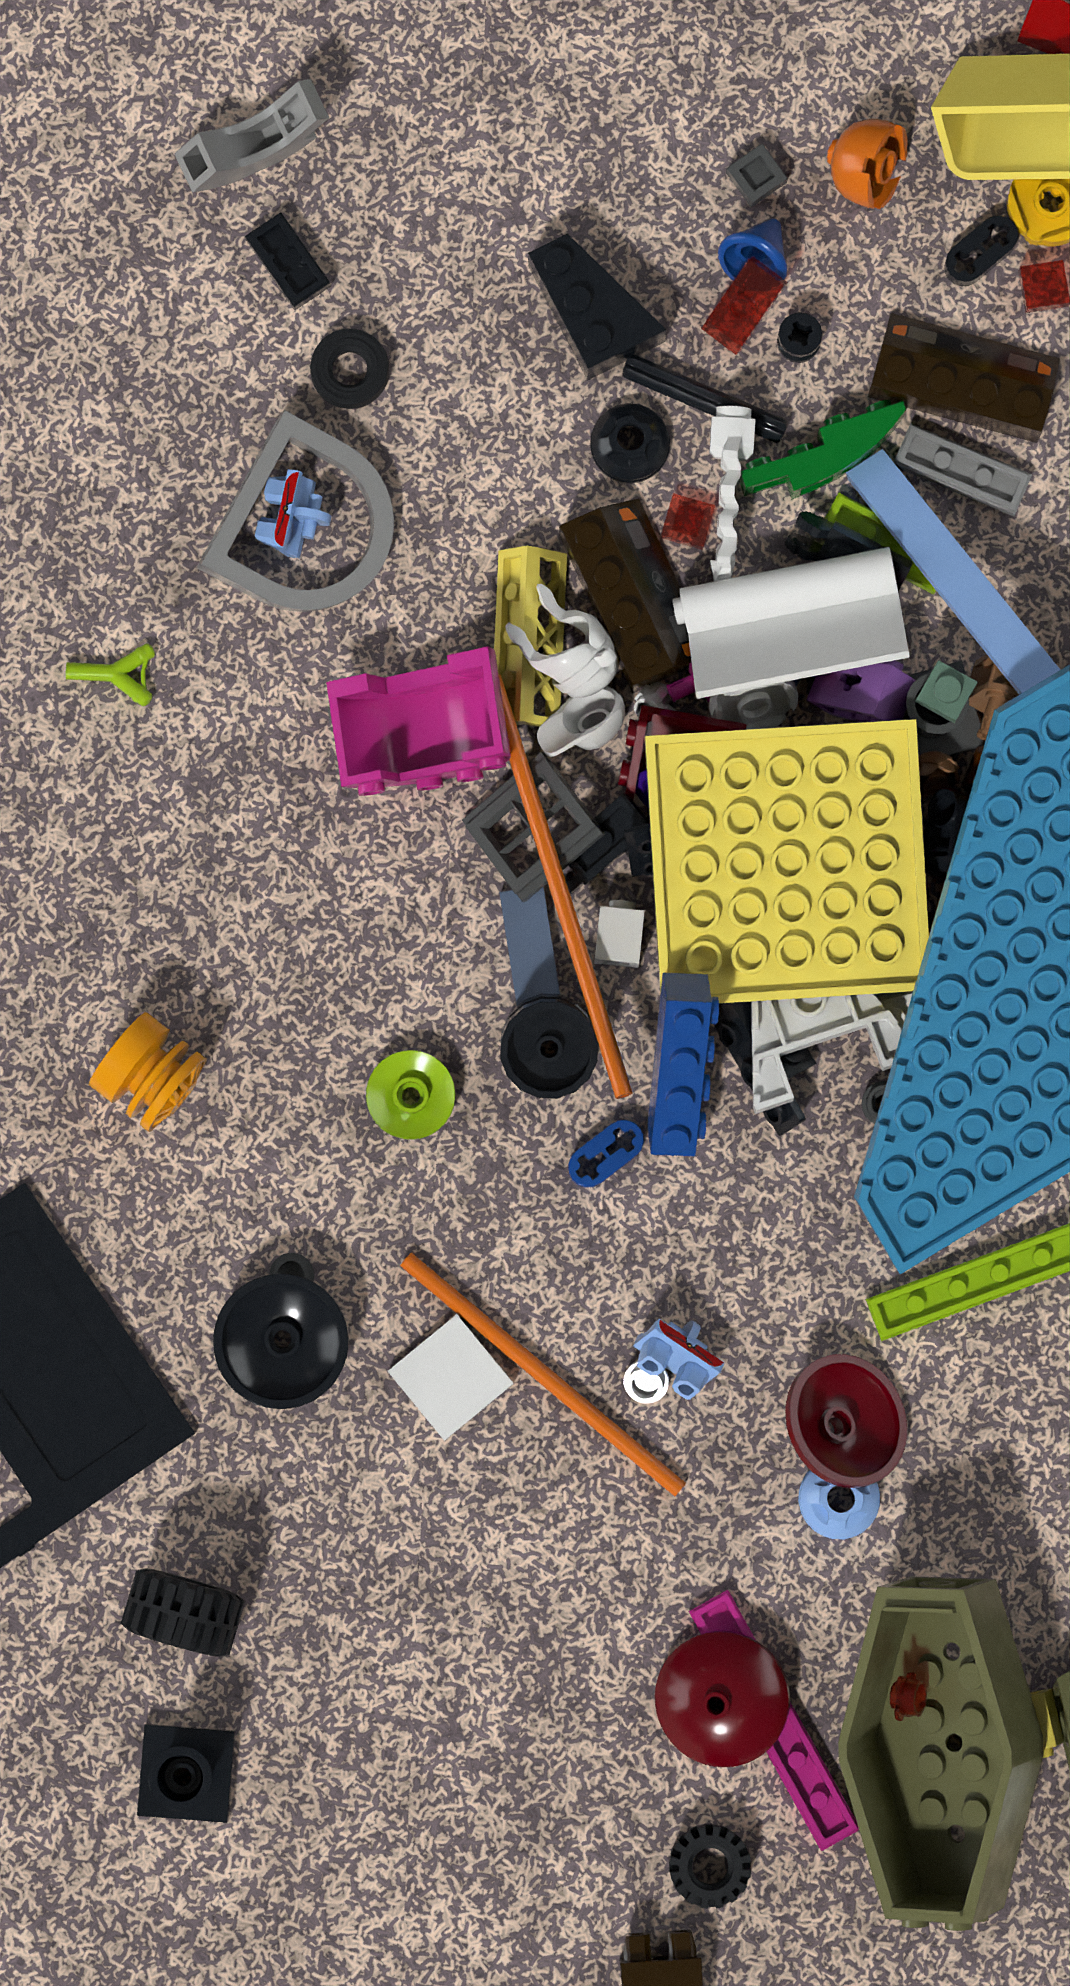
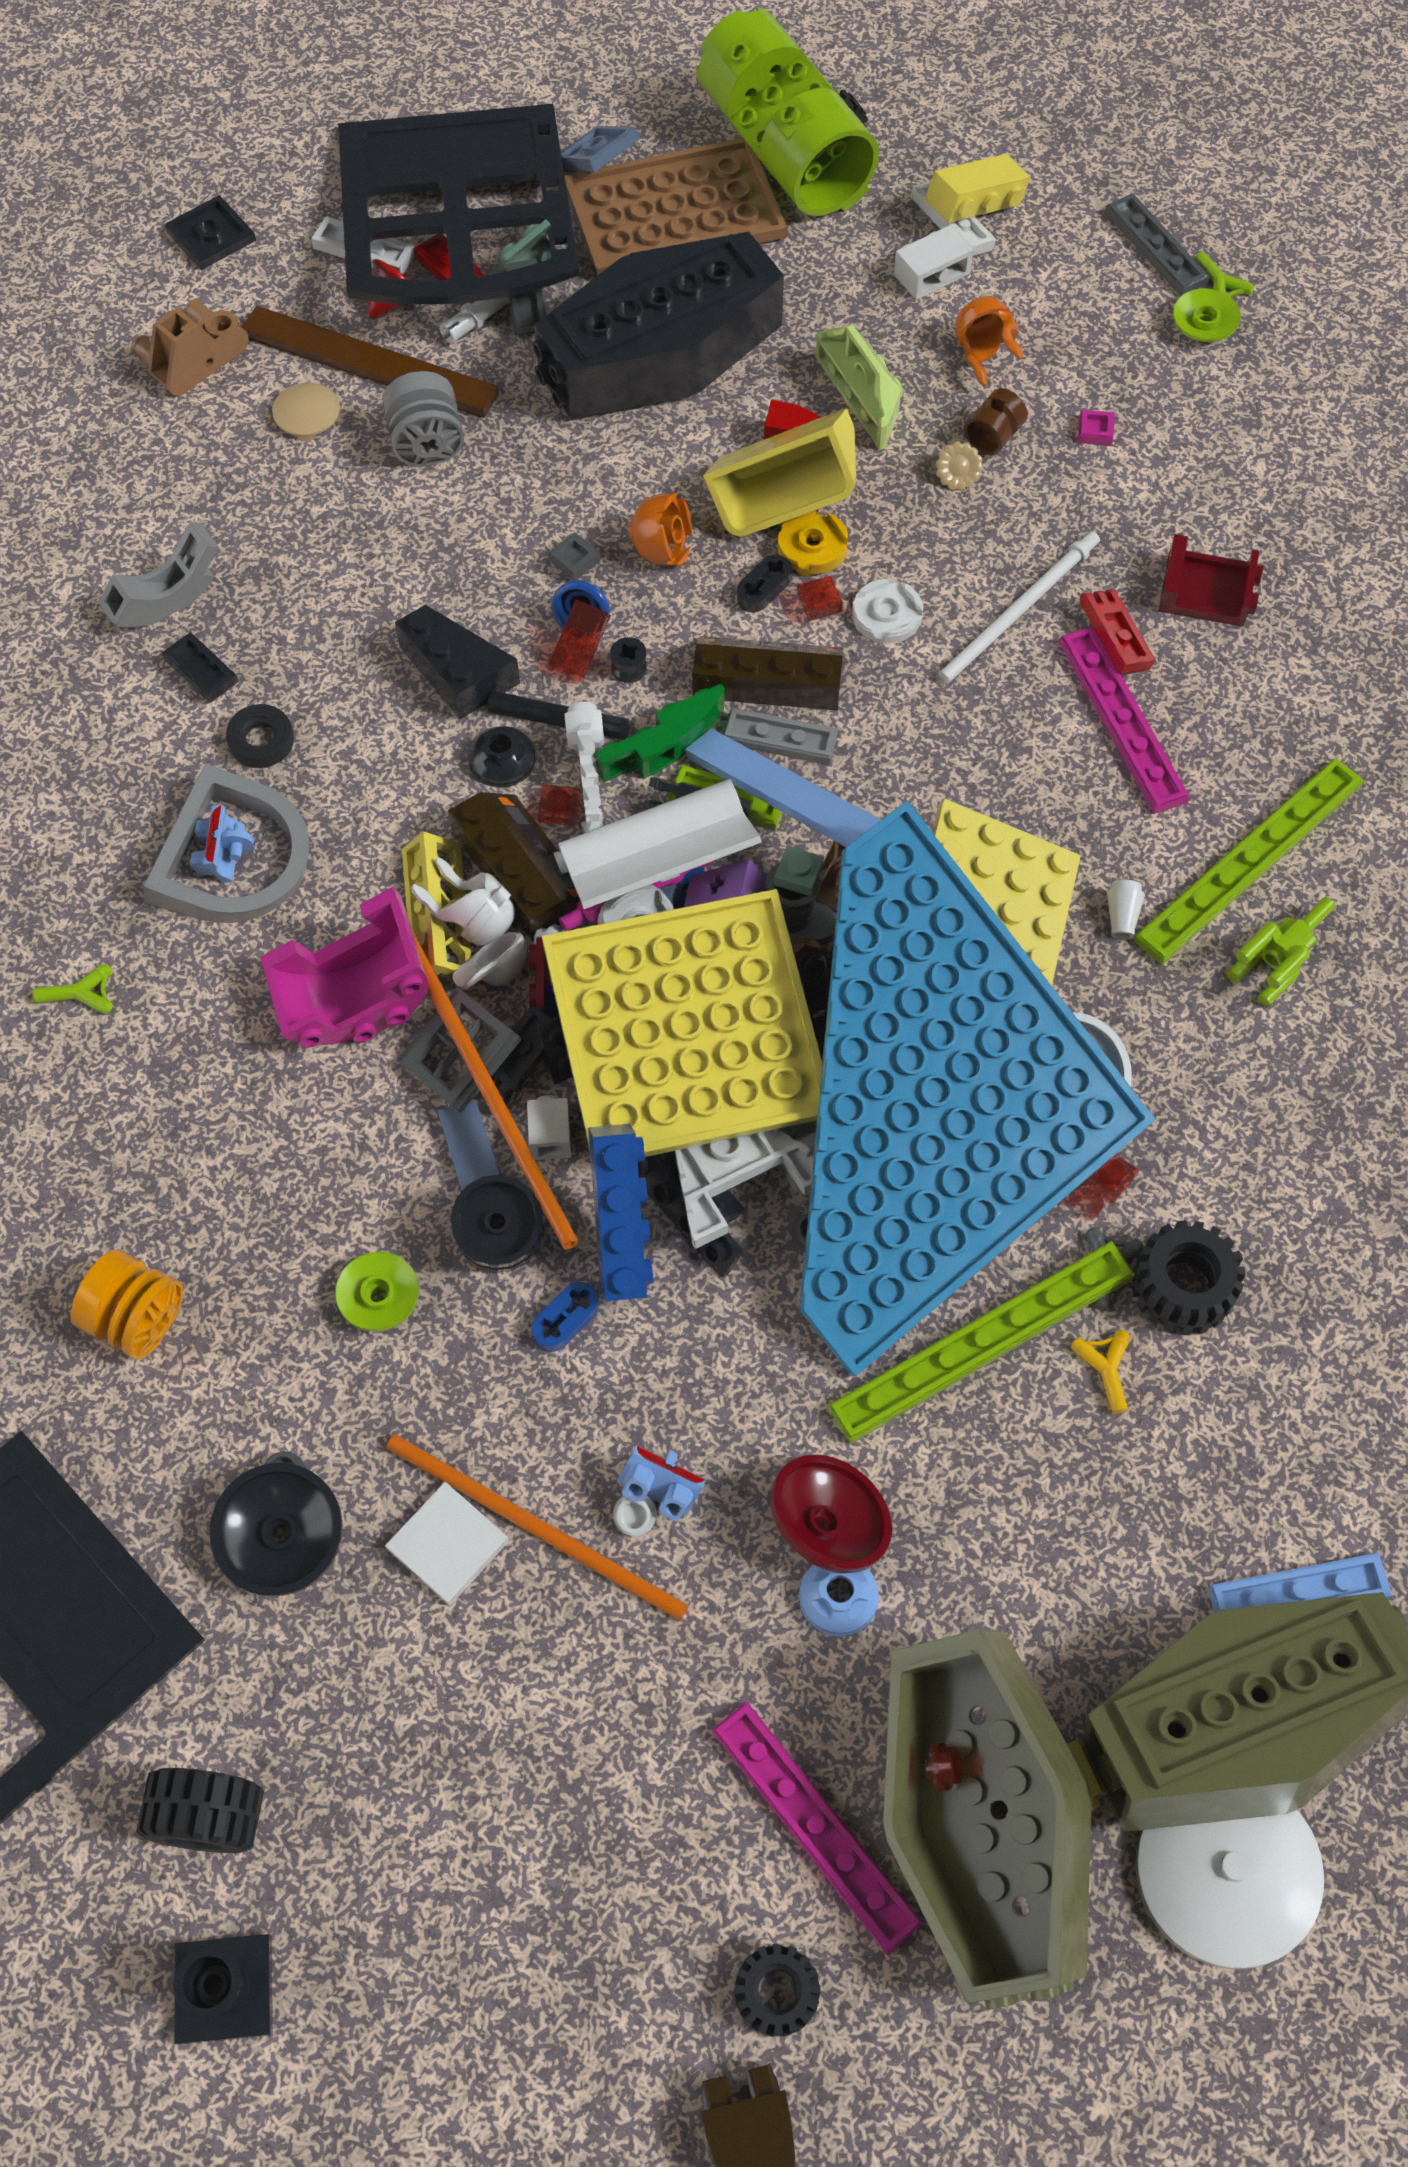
camera: 10 degrees left, 20 degrees down
(747, 1682) = (791, 1818): dark red dish -> none

